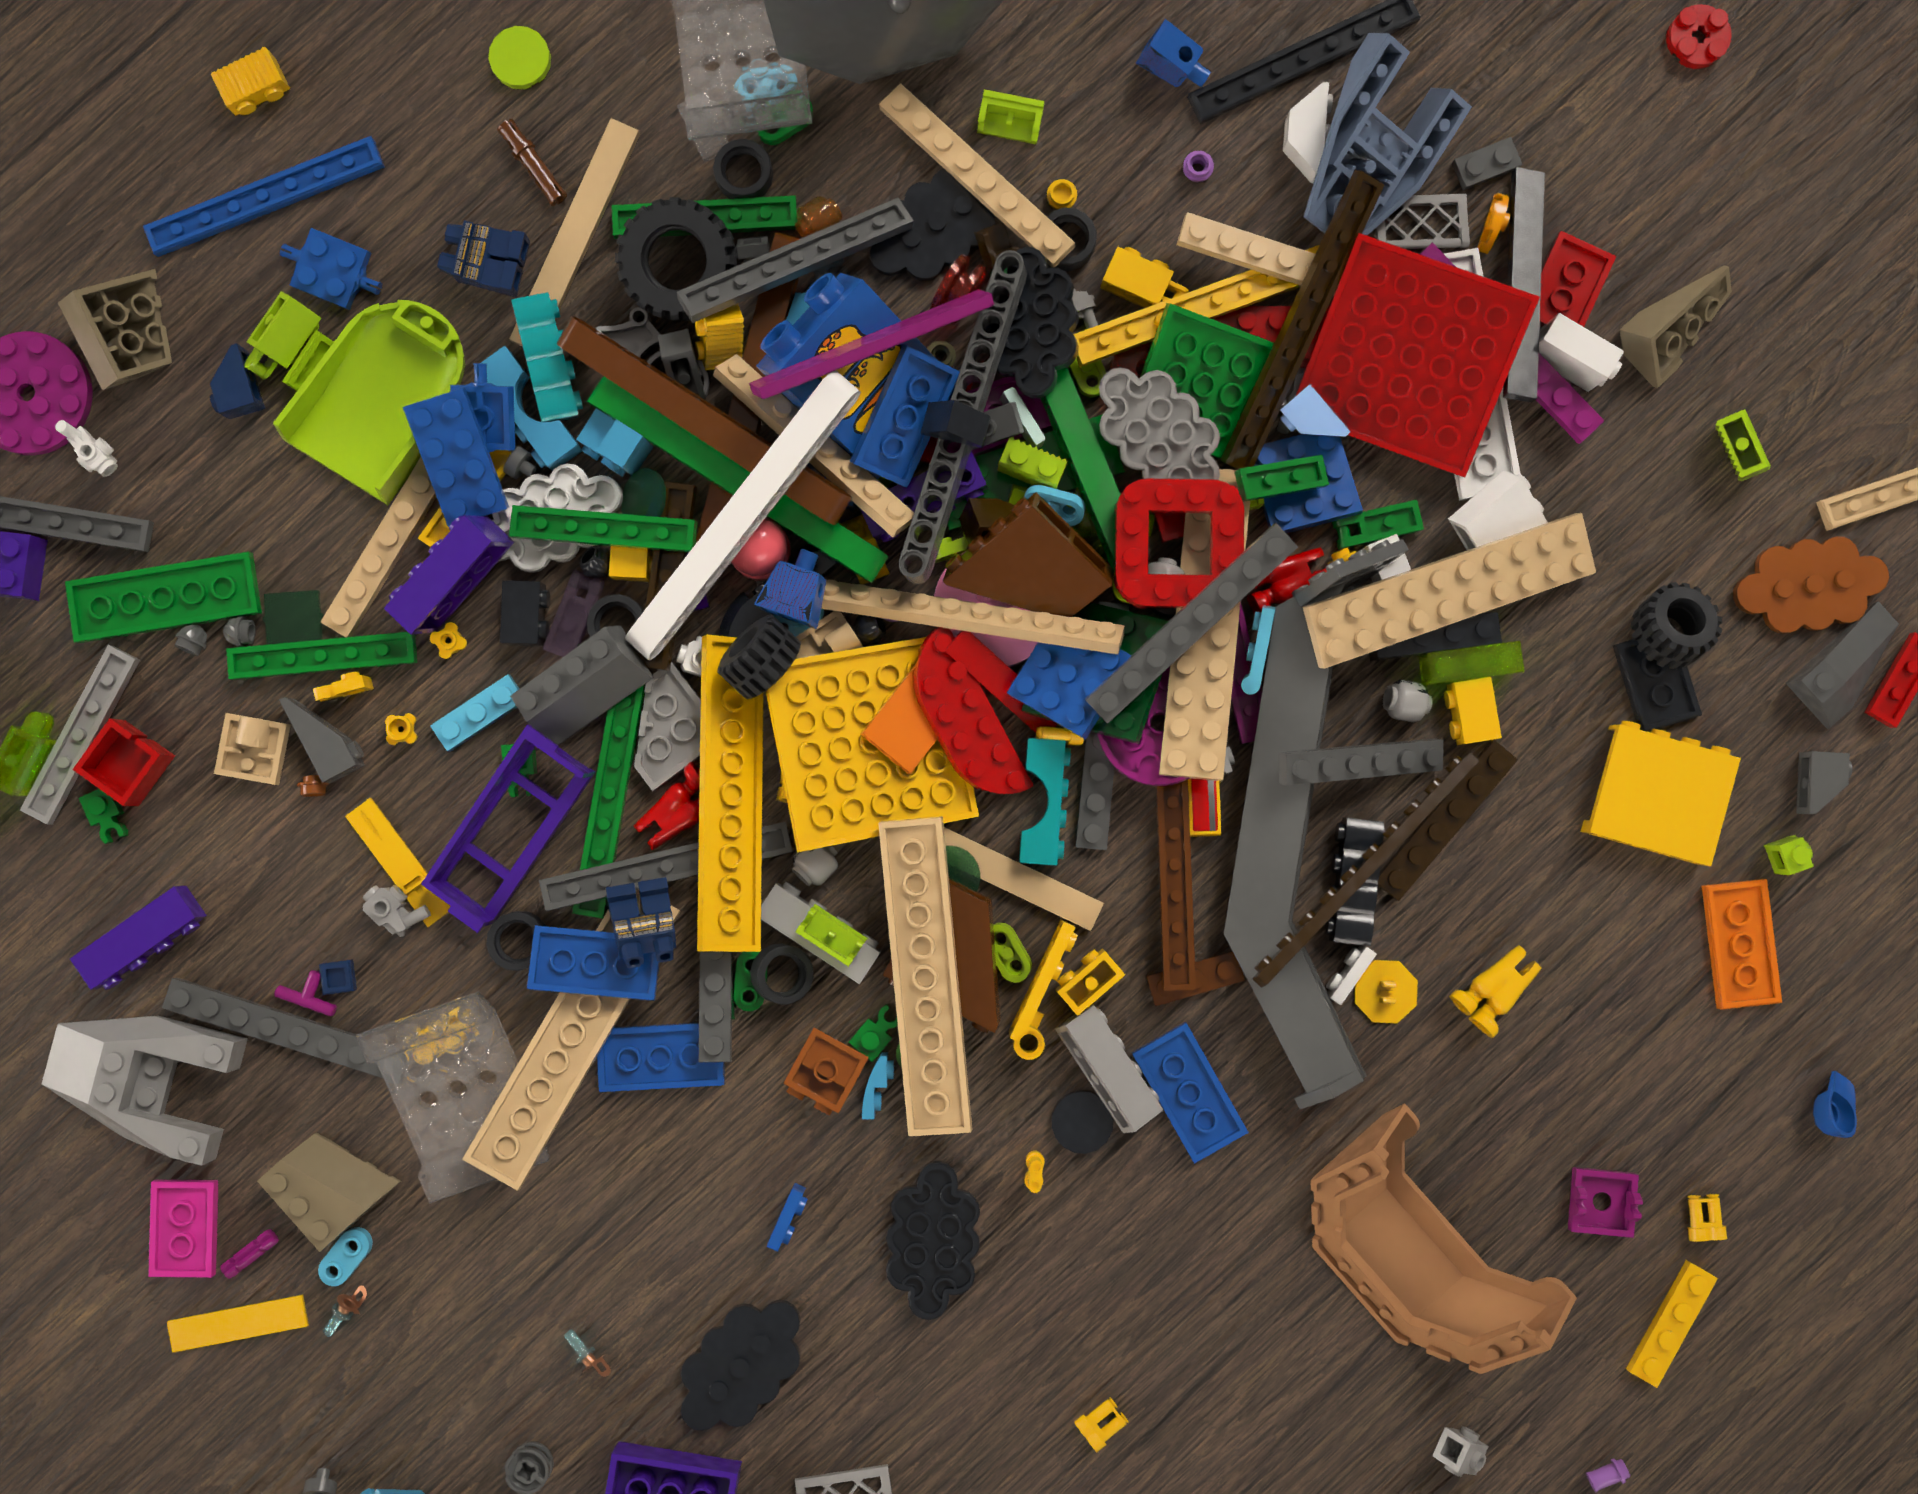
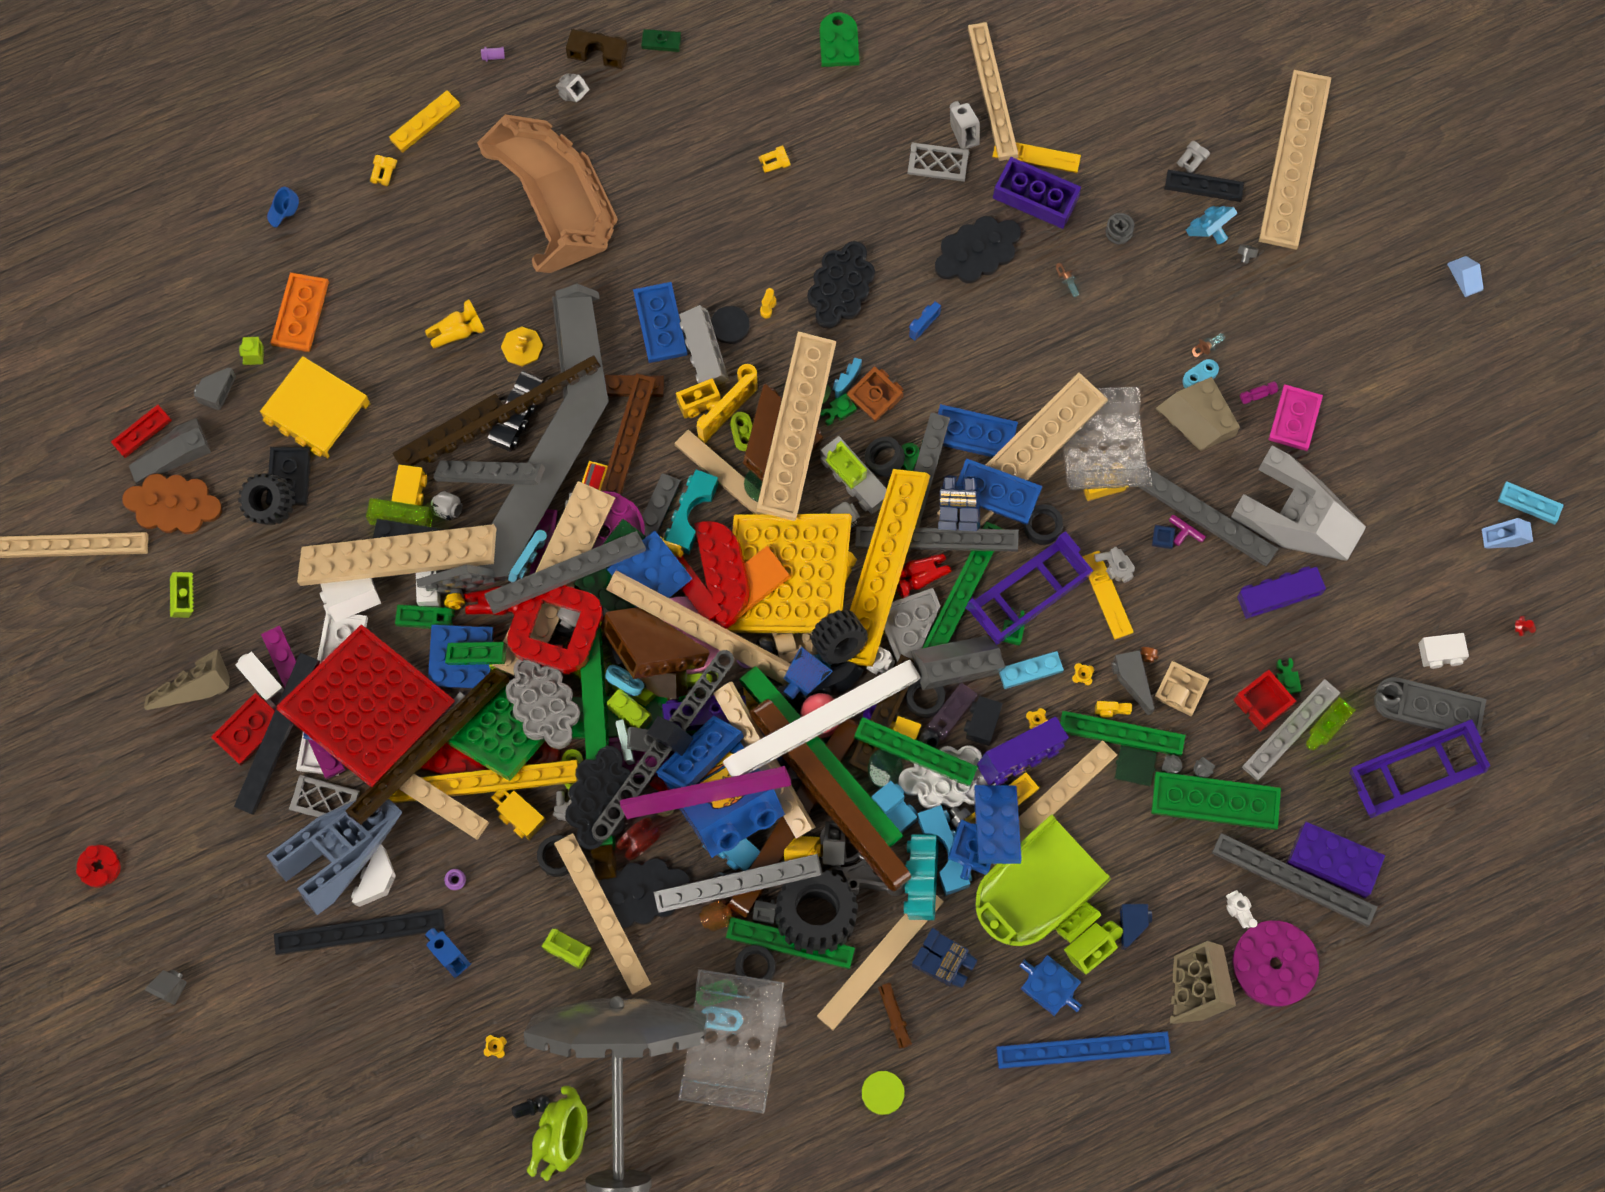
camera: 160 degrees left, 15 degrees down
(237, 1323) = (1276, 356): yellow piece -> none
(250, 82) = (1071, 1128): yellow brick -> none
(1061, 194) = (550, 887): yellow plate -> none
(1312, 415) = (441, 689): light blue slope -> none
(1356, 964) = (540, 359): white plate -> none
(1486, 163) = (268, 825): dark grey plate -> none
(1496, 221) = (277, 784): light orange plate -> none
(1624, 1200) = (437, 183): magenta piece -> none

